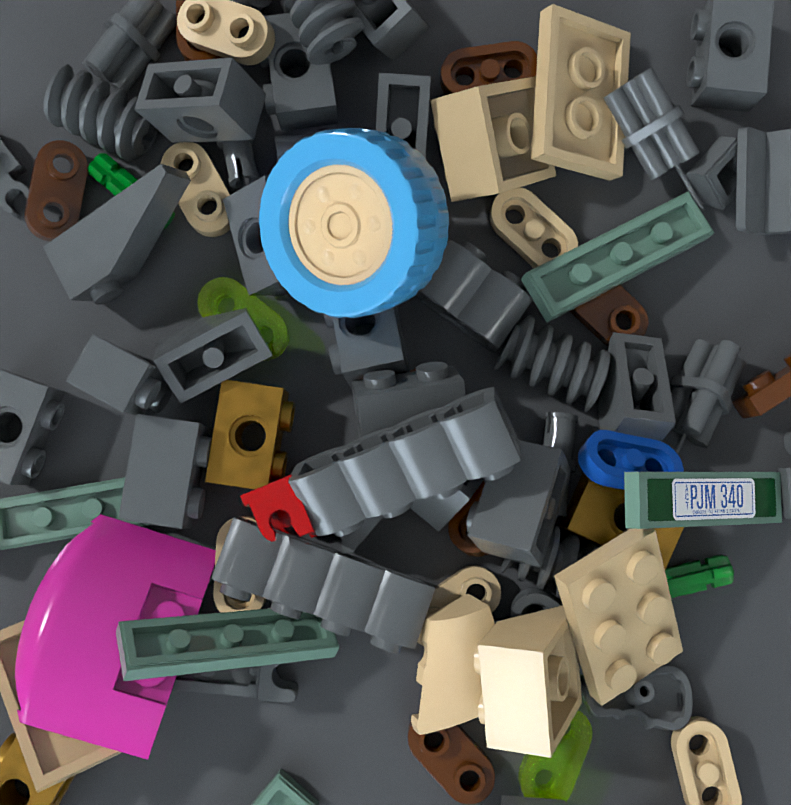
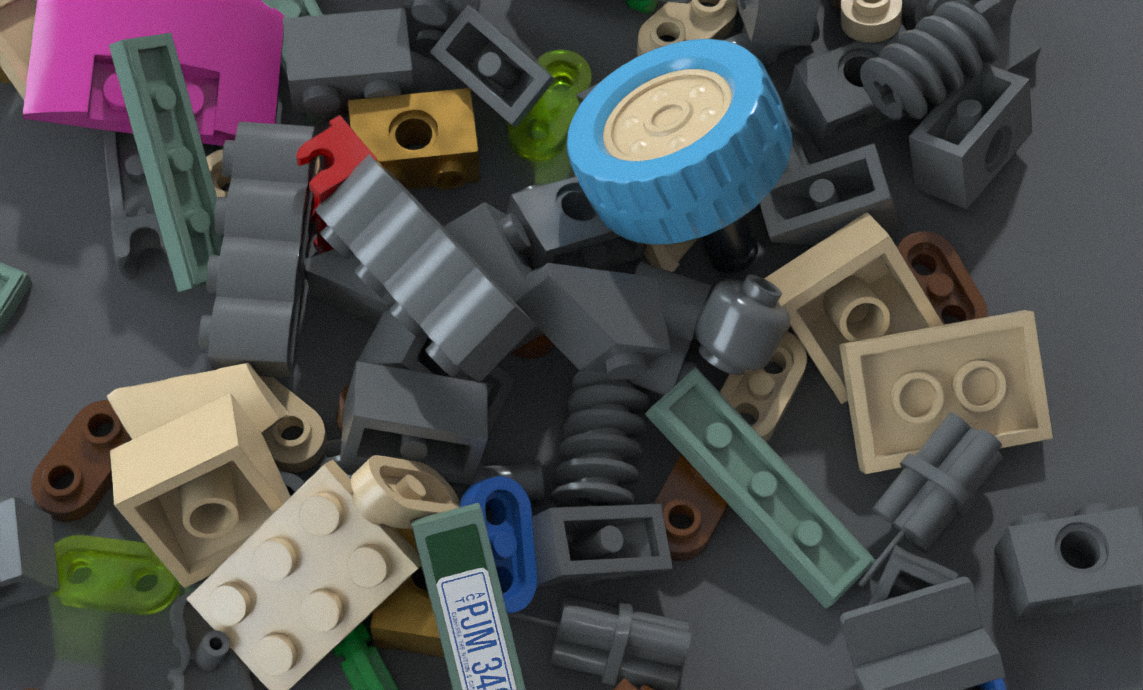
camera: 70 degrees right, 20 degrees down
(483, 332) = (598, 317): none -> dark grey slope
(501, 226) = (741, 325): none -> dark grey head
(594, 526) = (400, 491): none -> tan plate

